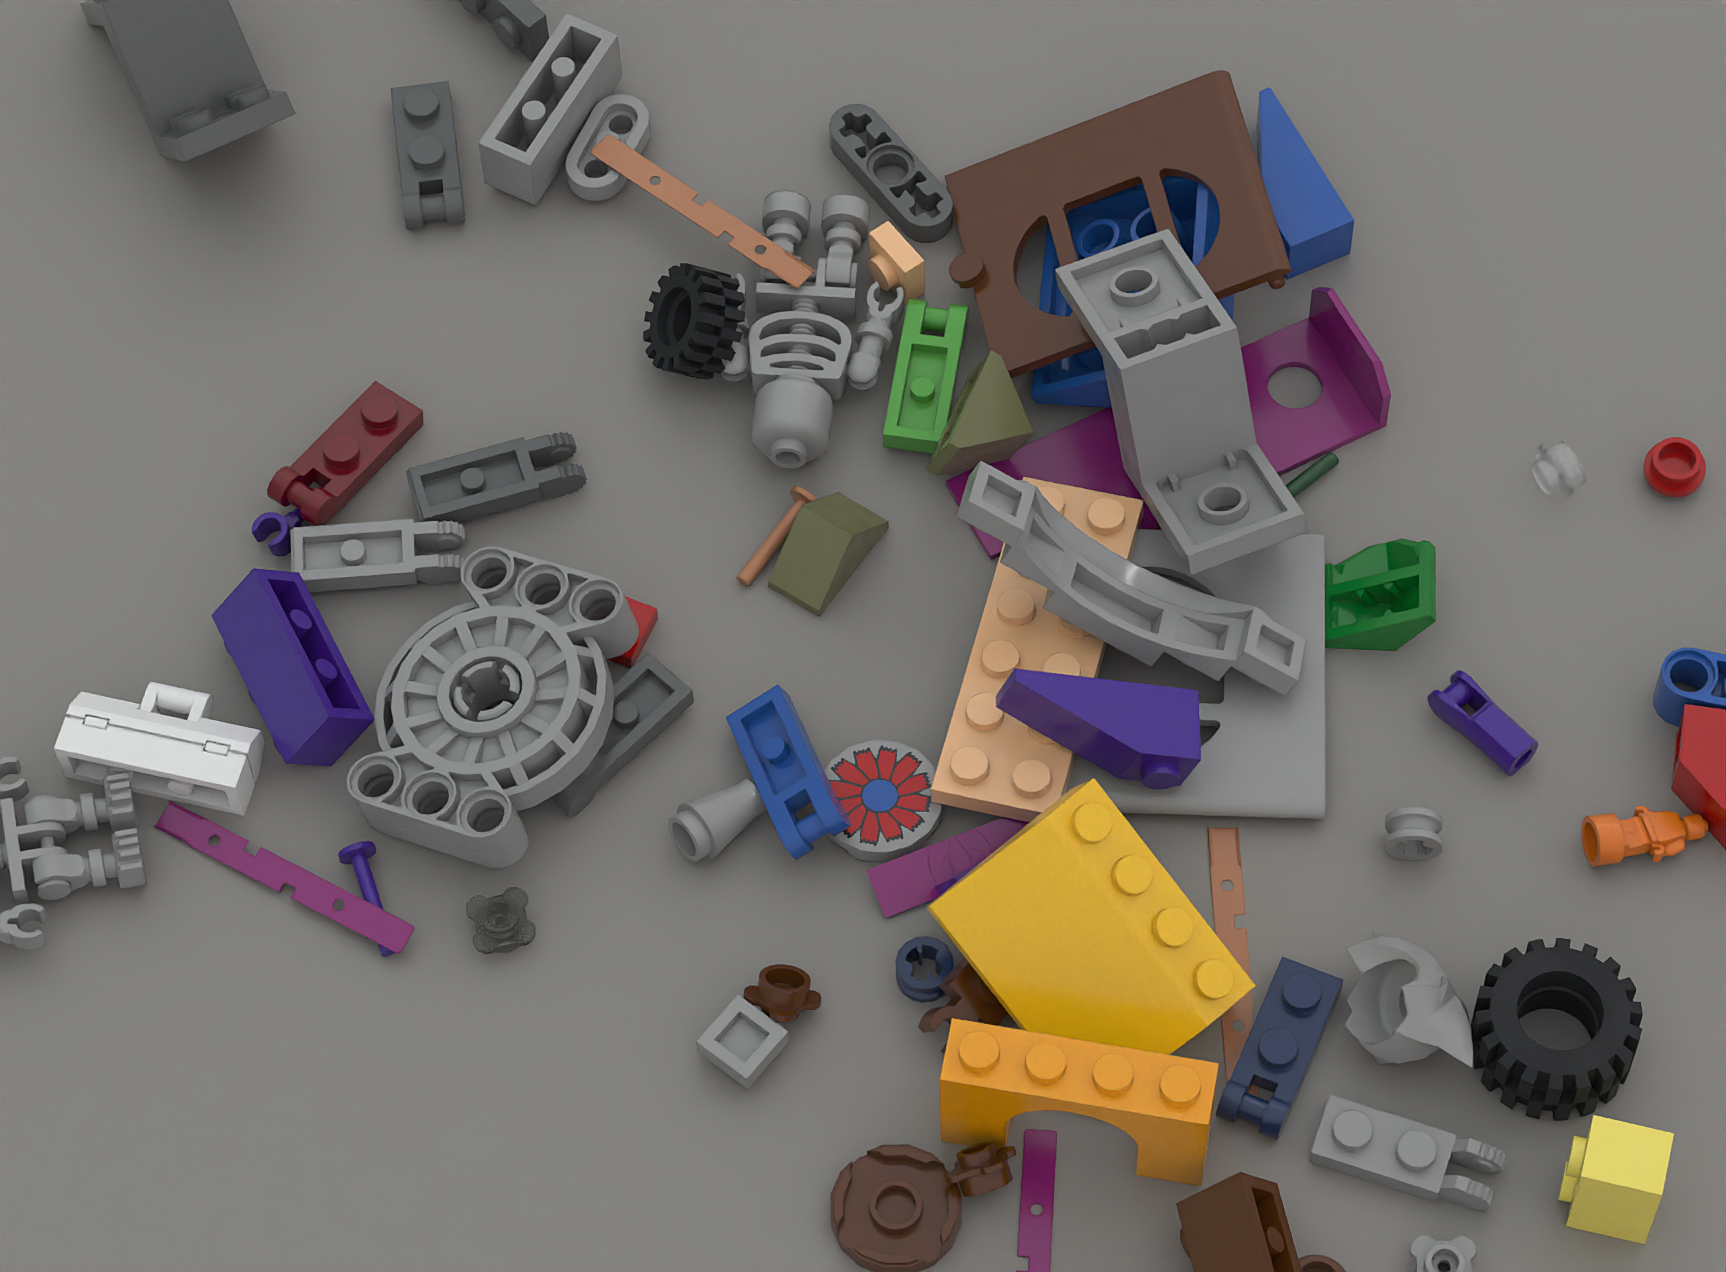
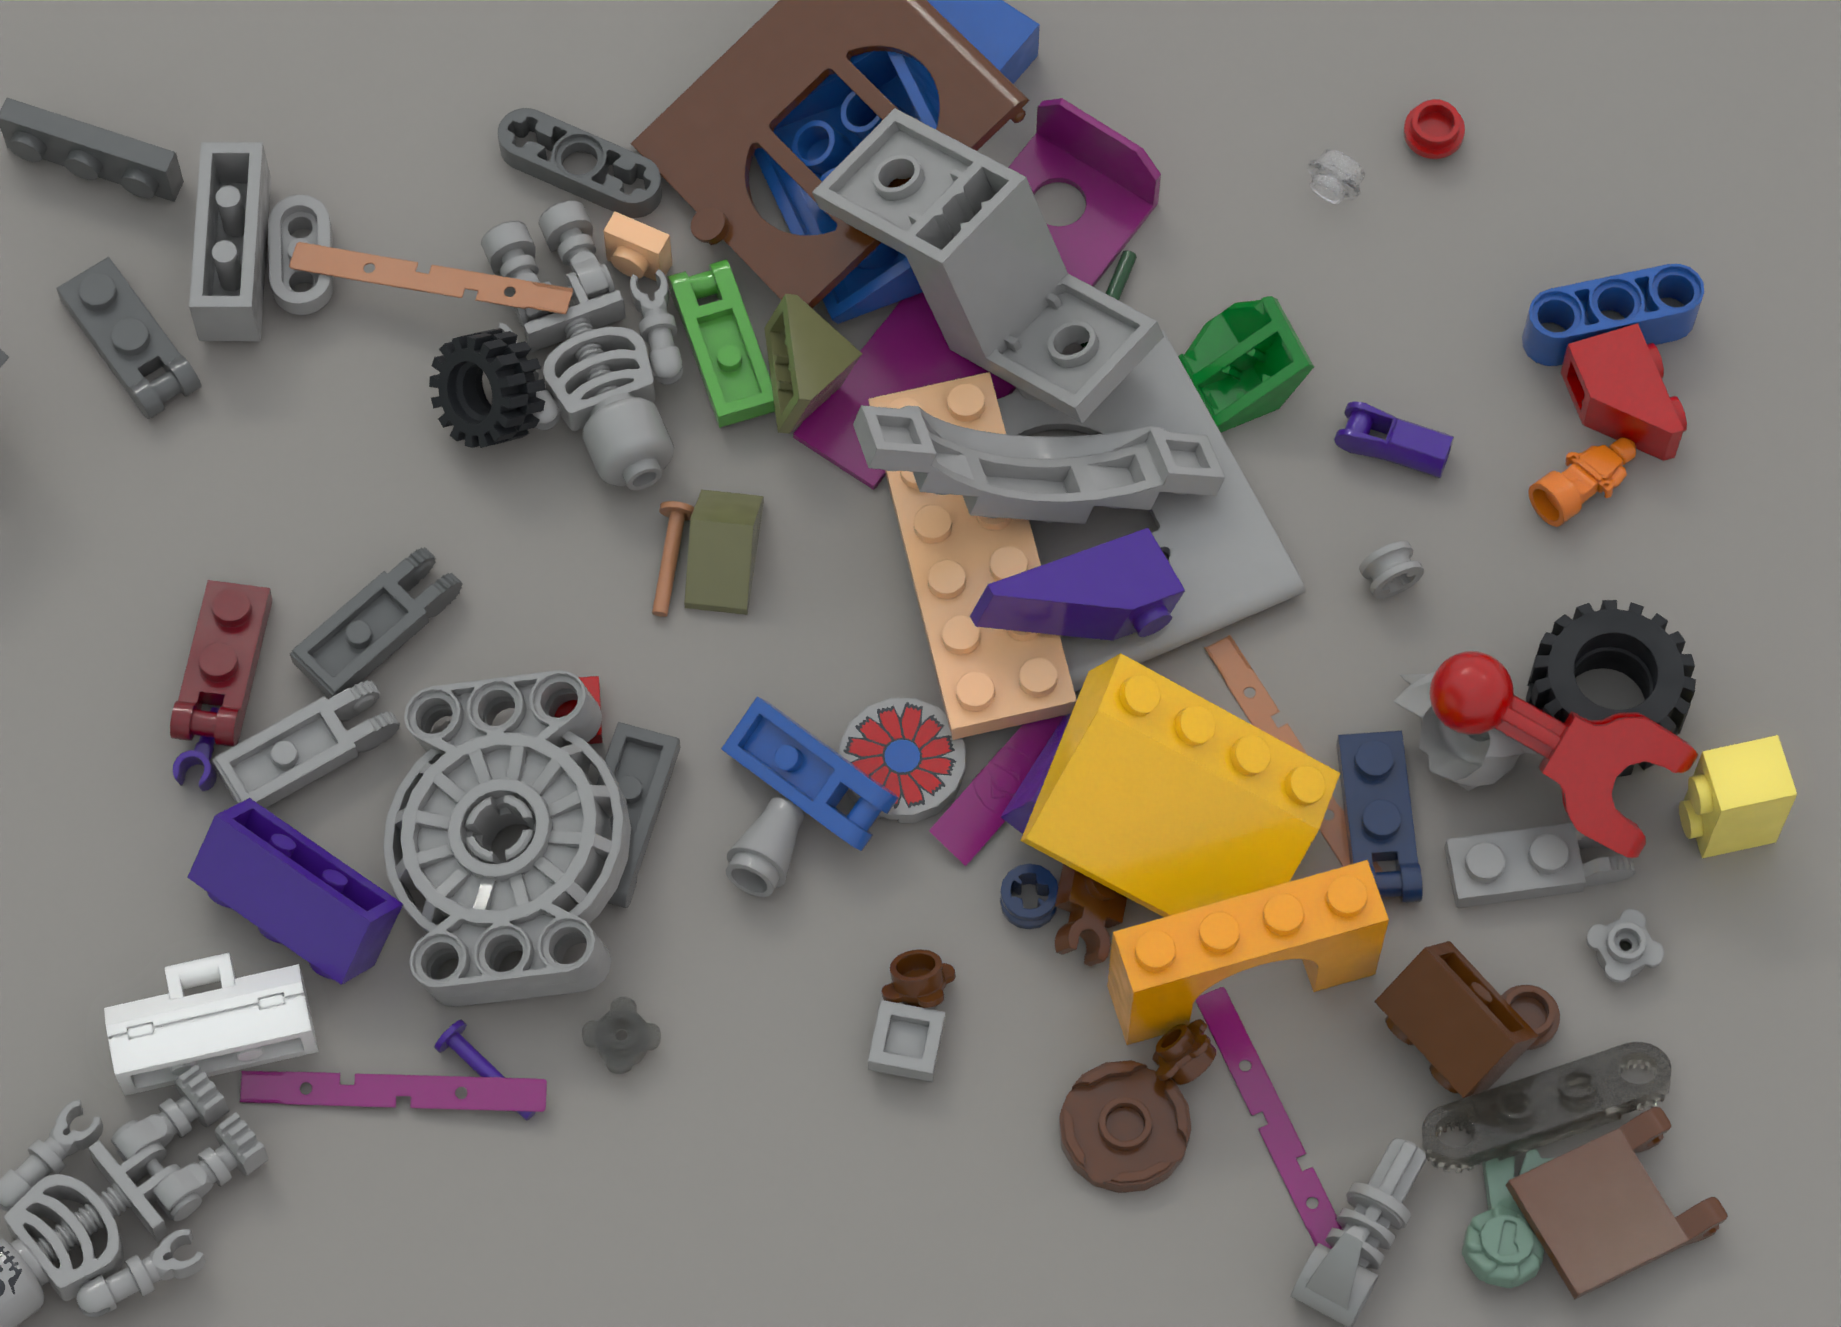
camera: 30 degrees left, 5 degrees up
(1481, 1068) = (1582, 755): none -> red piece

